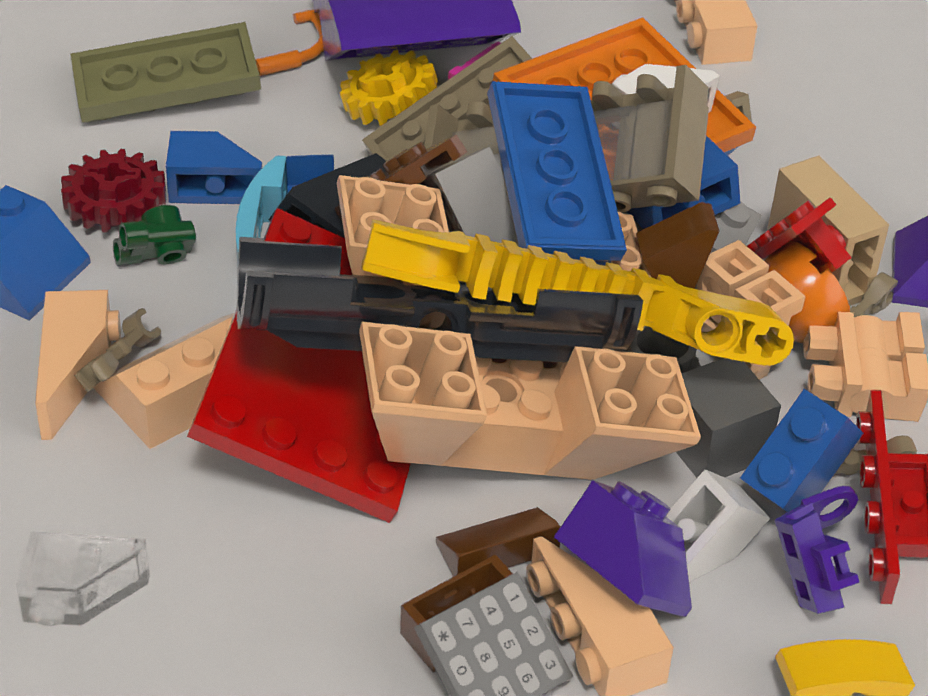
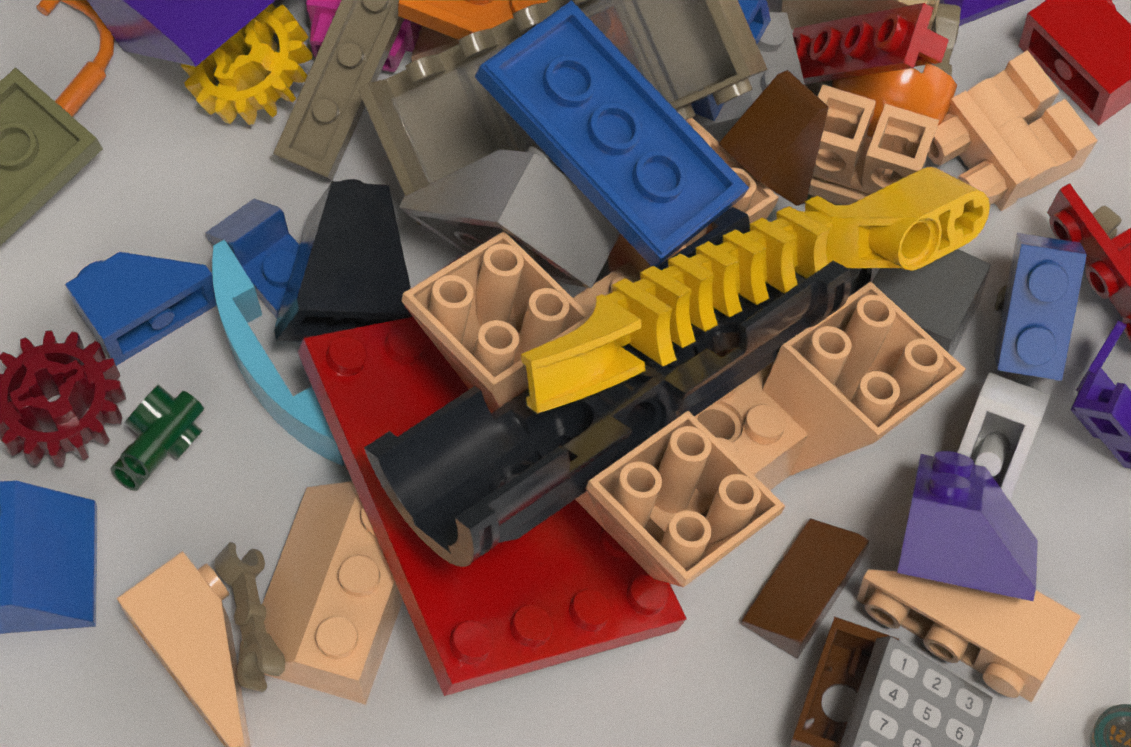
camera: 30 degrees left, 20 degrees up
(417, 162) = (420, 225): reddish brown wing -> none

